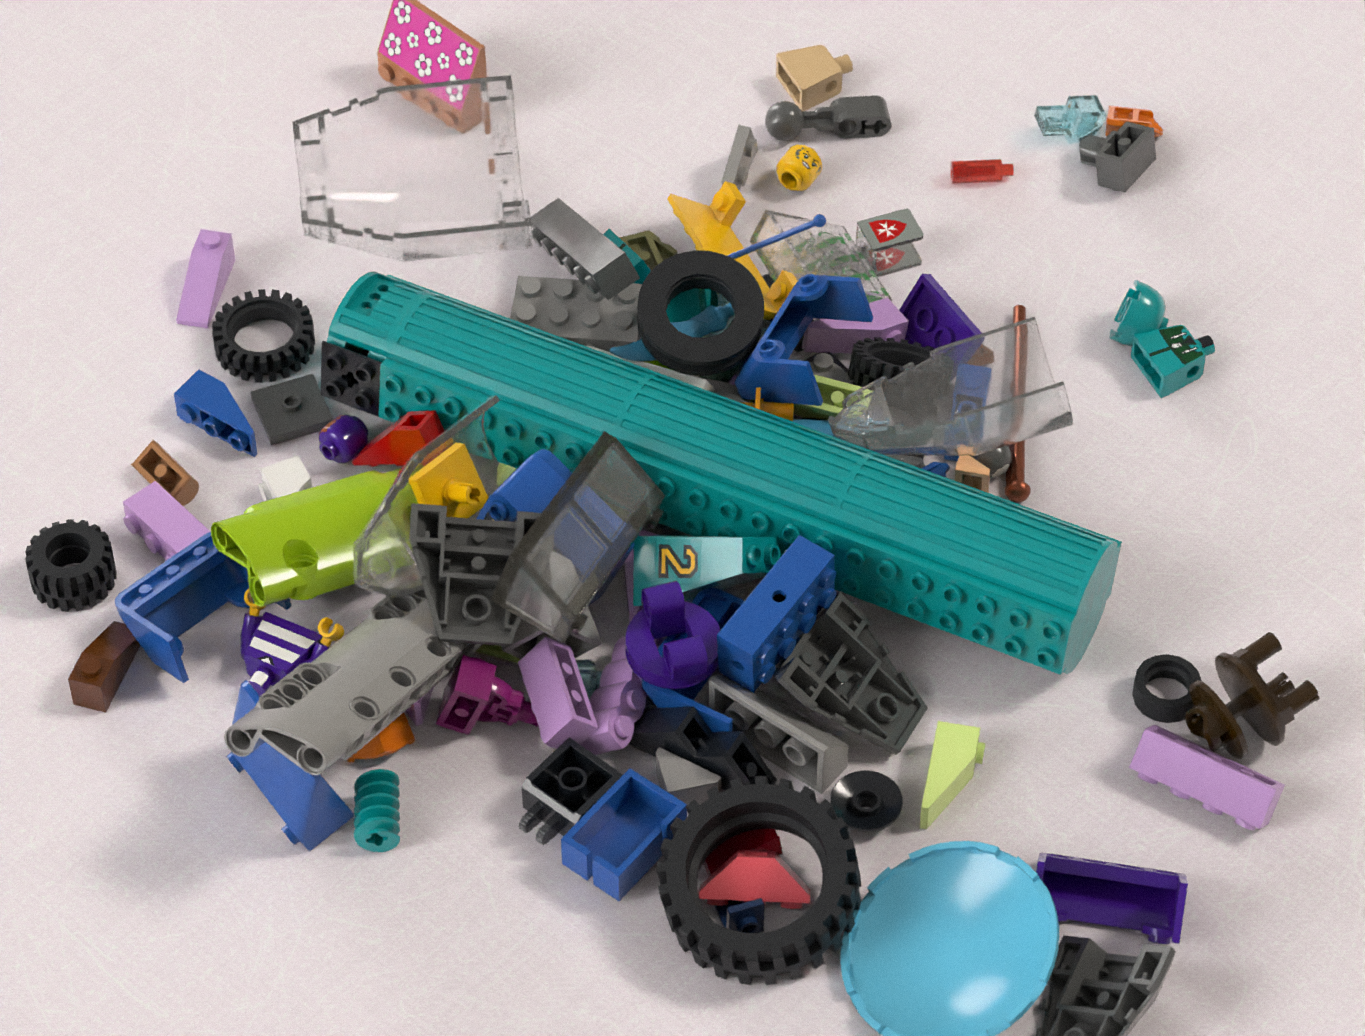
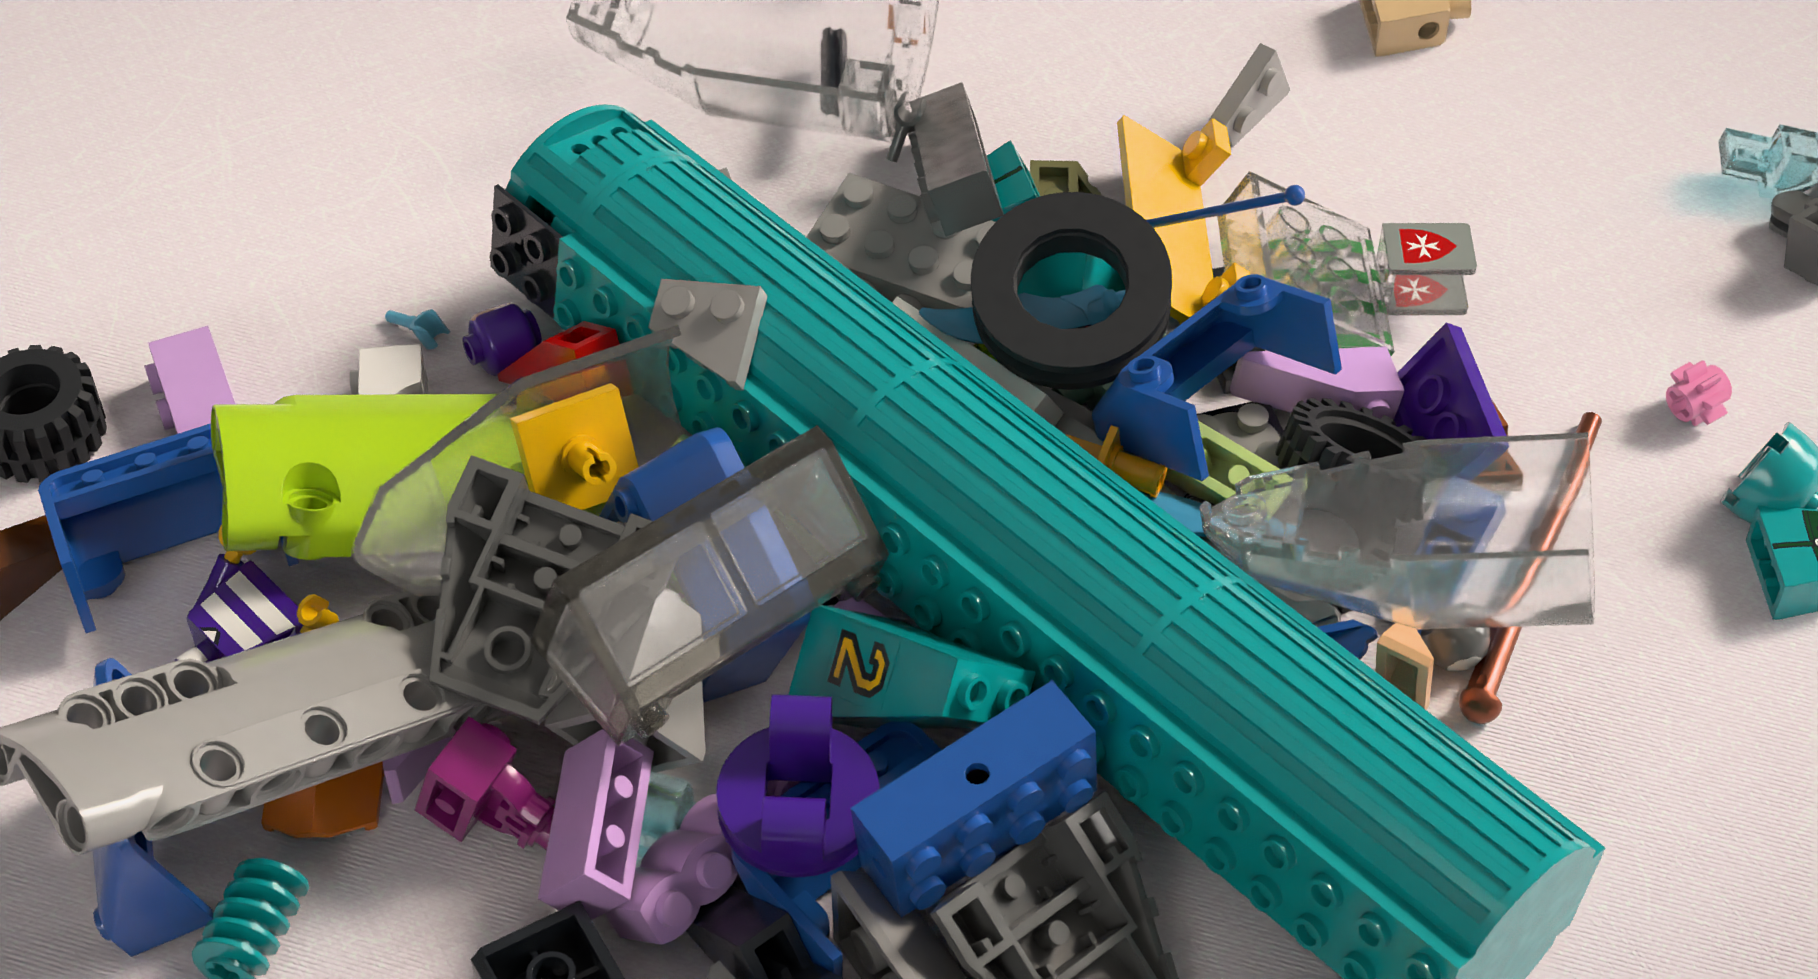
camera: 20 degrees right, 0 degrees up
(160, 466) = (238, 324): medium nougat brick -> none
(206, 277) = (442, 69): lavender slope -> none
(212, 408) = (350, 245): blue slope -> none
(263, 308) = (450, 135): black tyre -> none
(286, 443) = (424, 326): none -> medium azure hand
(291, 409) = (455, 278): dark grey plate -> none
(468, 205) = (833, 56): none -> black axle
(513, 386) = (715, 323): none -> light grey wing
(538, 232) = (905, 120): none -> dark grey hand
(799, 168) = (1334, 129): yellow head -> none
(845, 116) = (1432, 77): dark grey beam -> none
(979, 171) = (1606, 201): clear red cylinder -> none
(1076, 276) = (1698, 393): none -> bright pink gear

